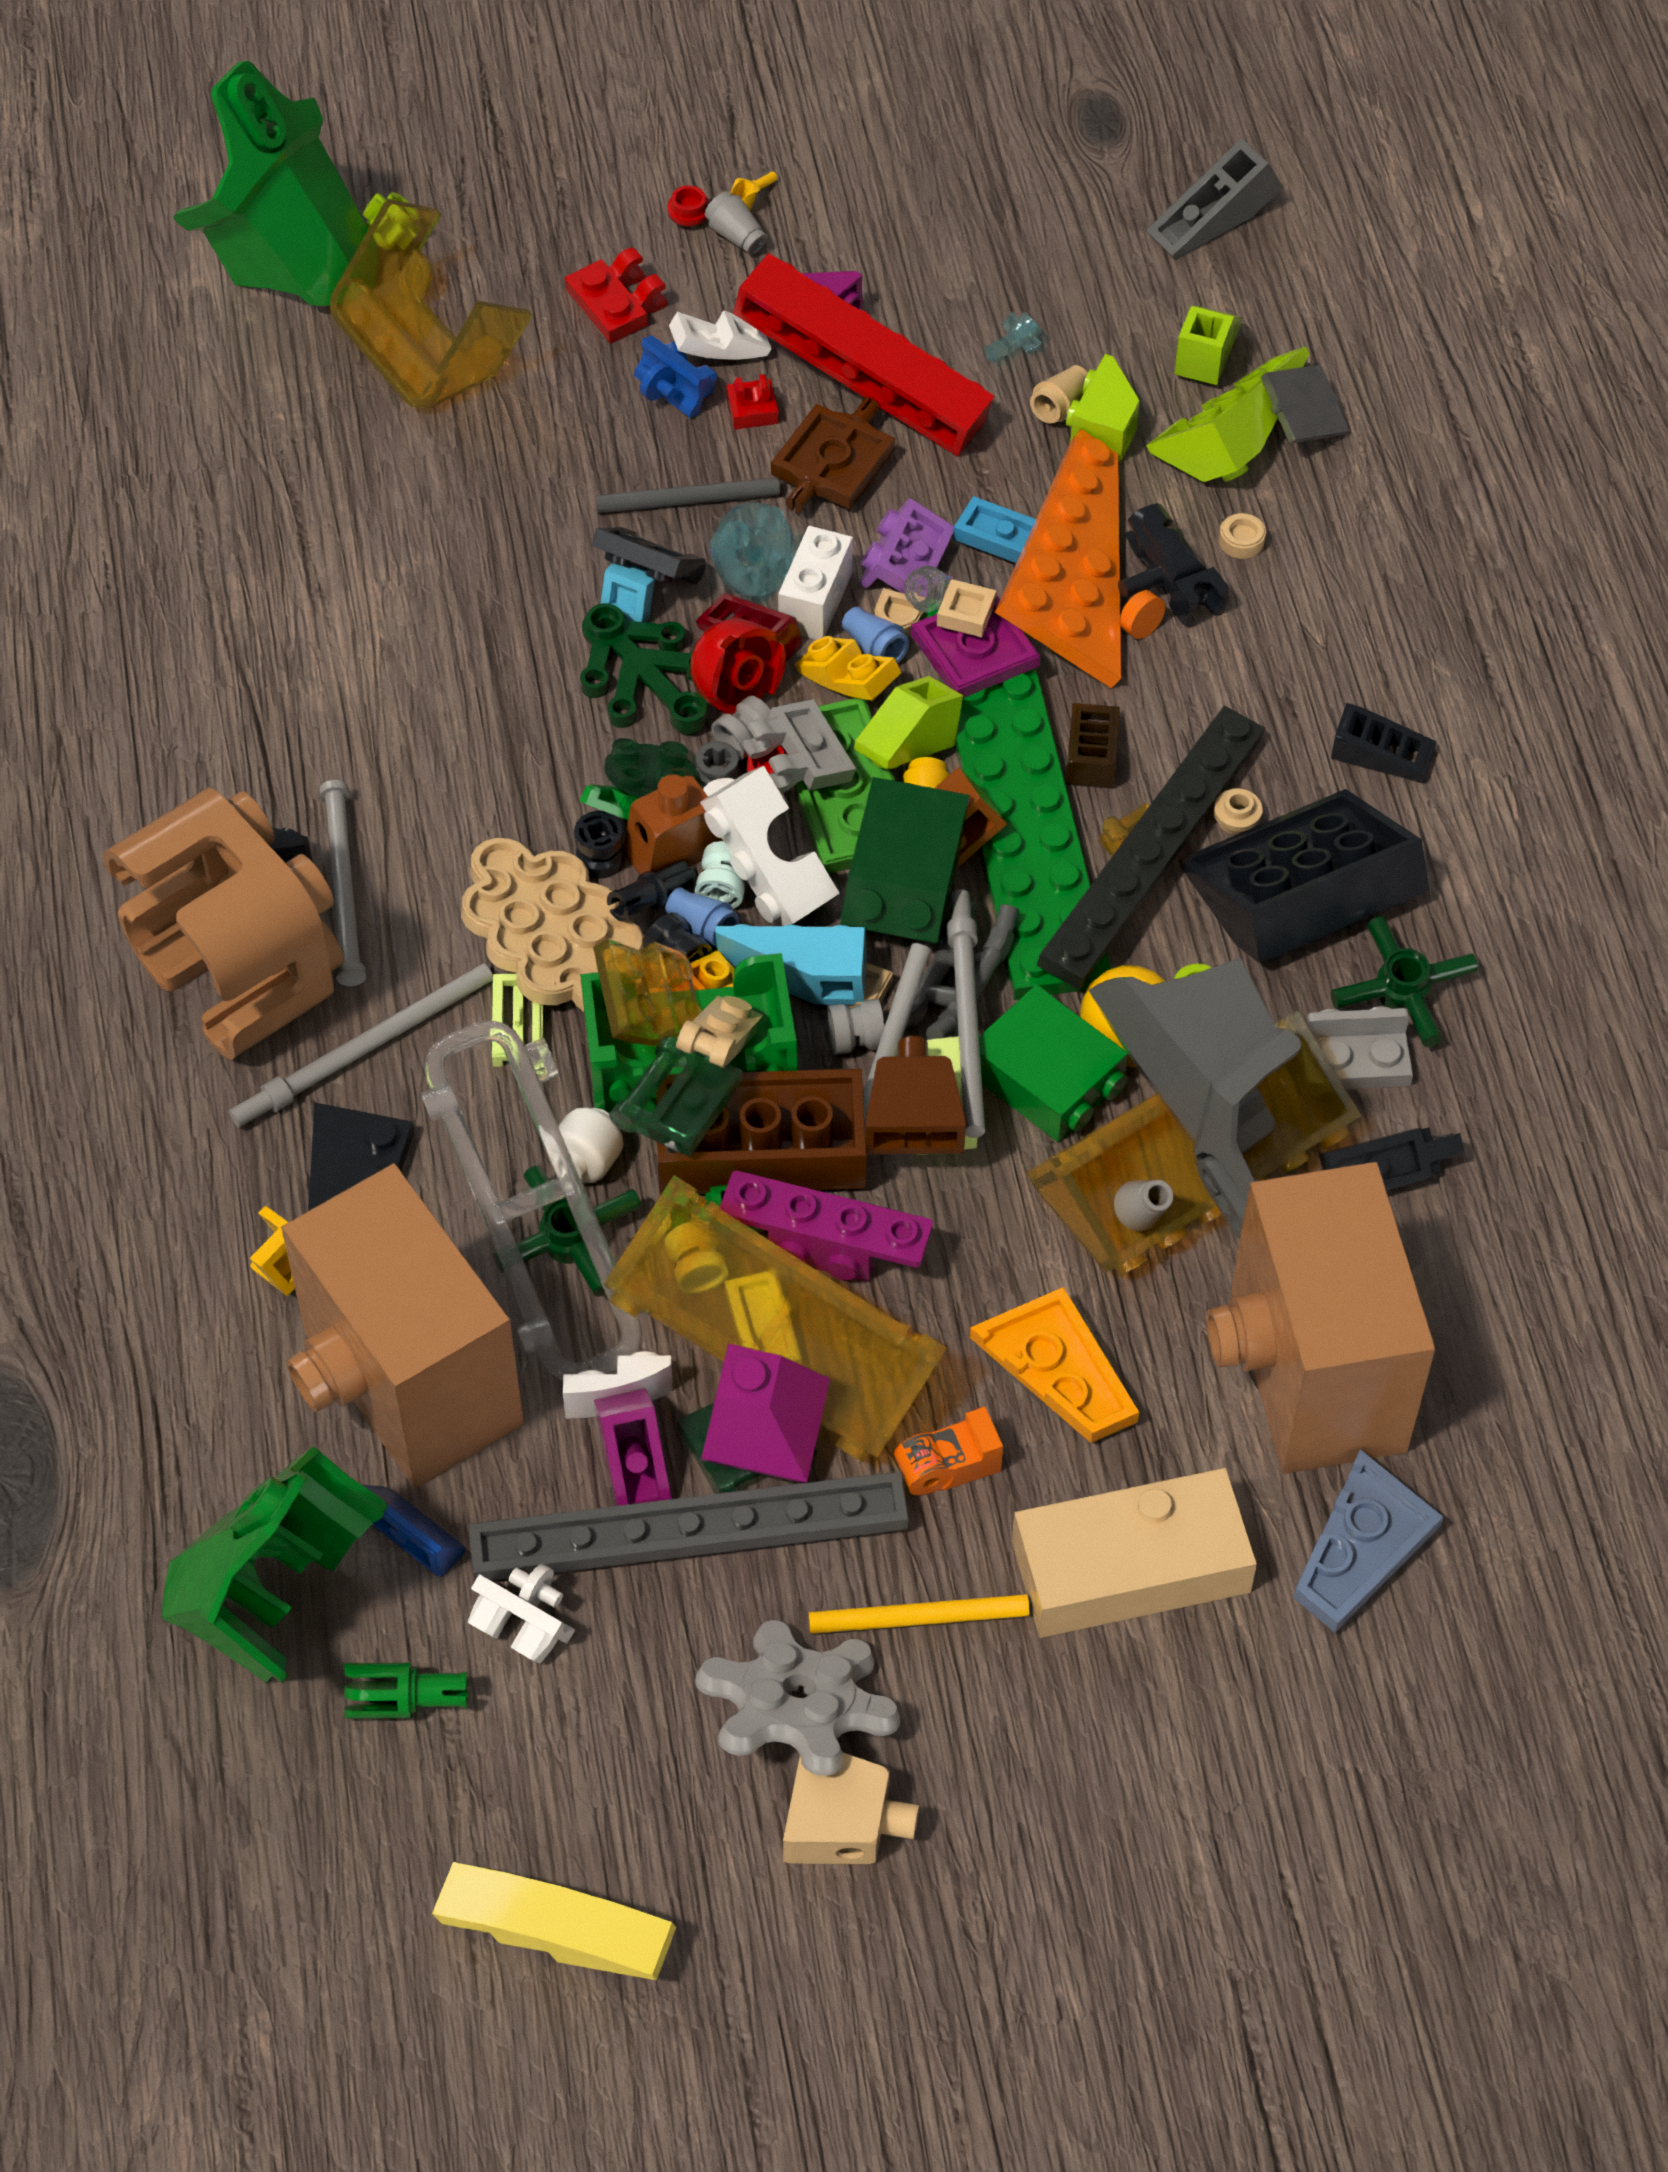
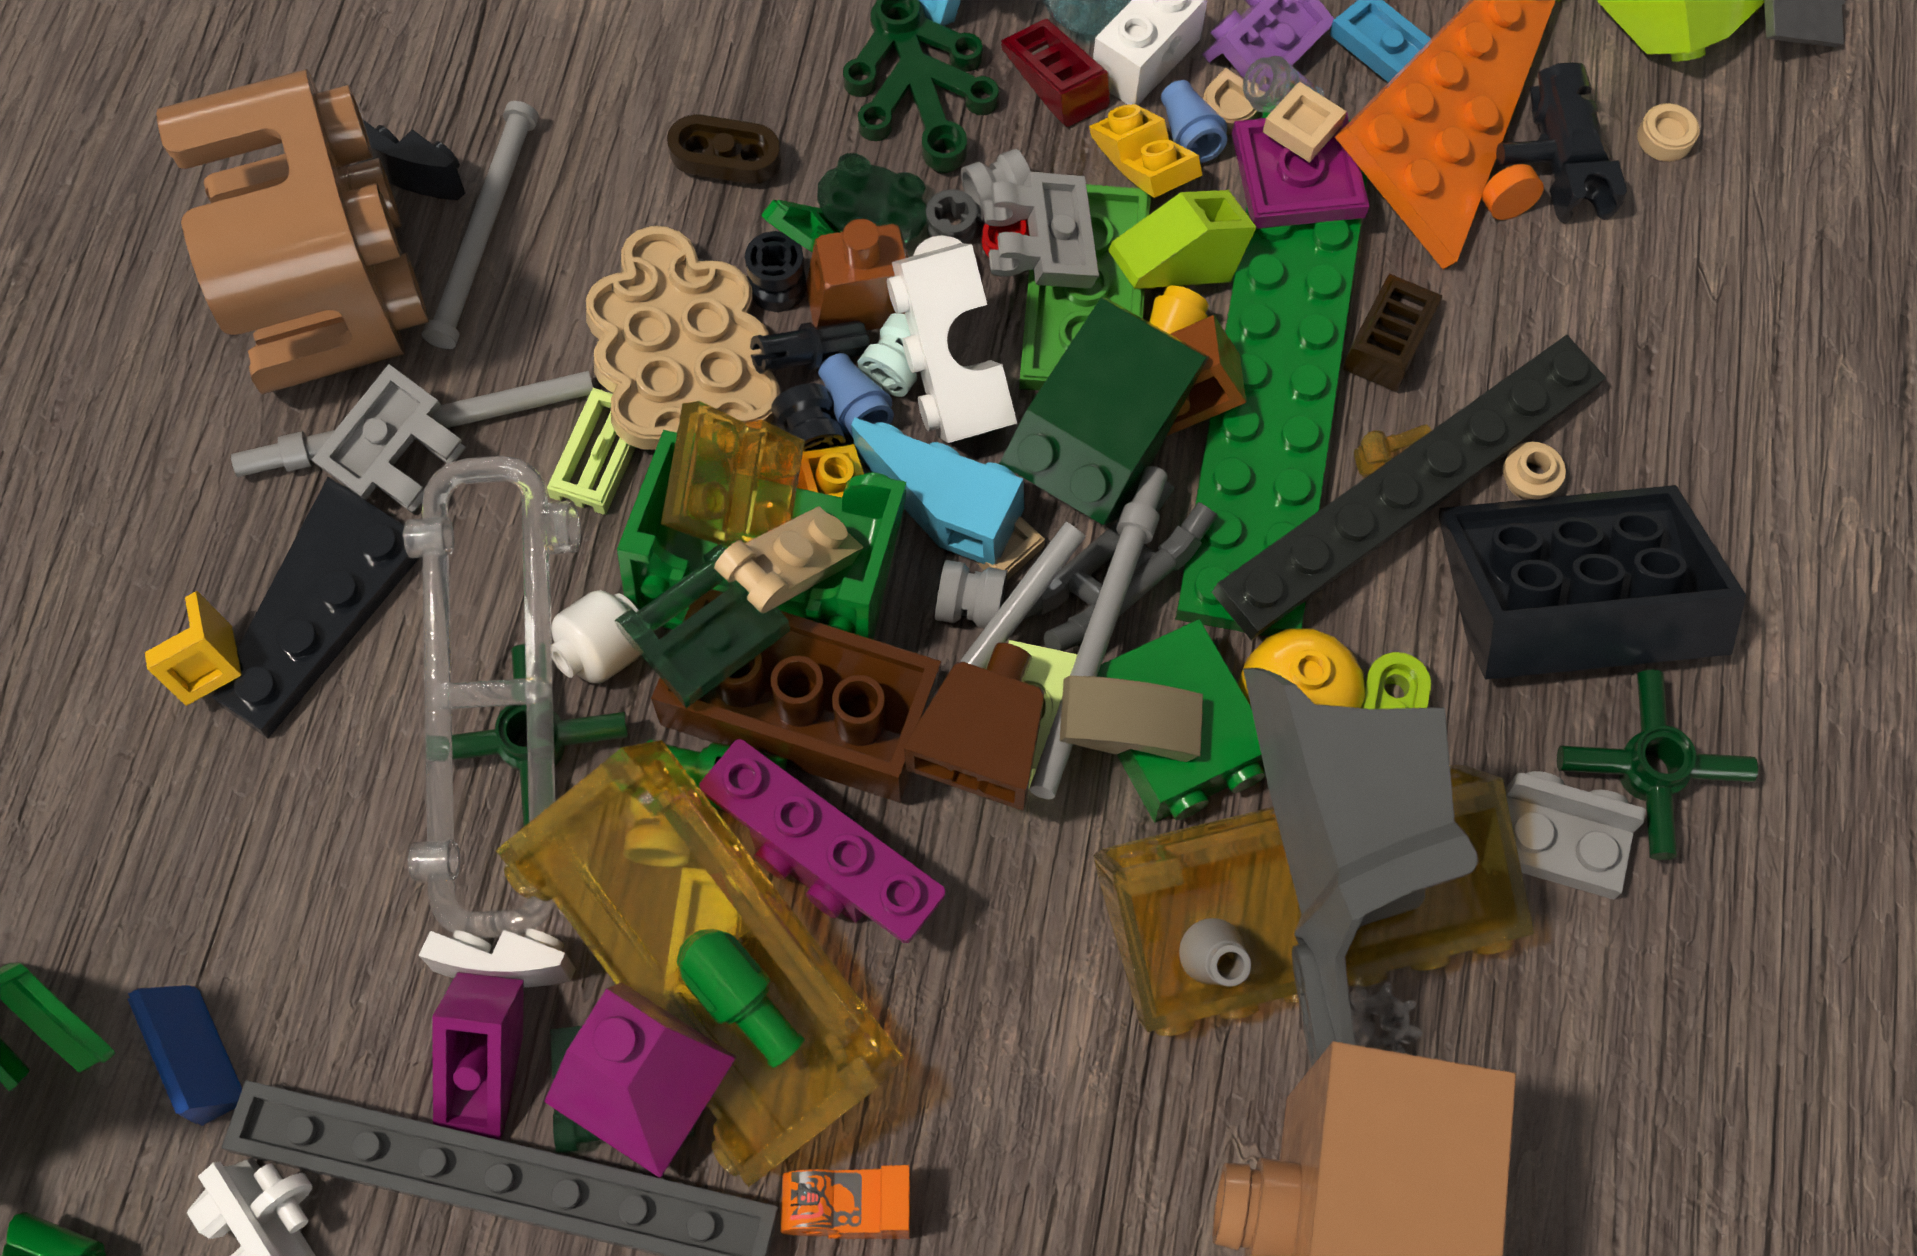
camera: 20 degrees right, 10 degrees up
(345, 1054) = (378, 433): none -> light grey plate
(400, 1327) = (235, 814): medium nougat brick -> none
(513, 767) = (726, 148): none -> dark brown plate
(736, 662) = (1016, 104): red cylinder -> none
(810, 1335) = (736, 990): none -> green arm
(1011, 1059) = (1131, 715): none -> dark tan slope
(1059, 1362) = (1035, 1126): light orange wing -> none
(1372, 726) = (1741, 419): black slope -> none
(1401, 1156) = (1546, 1002): black hinge -> none

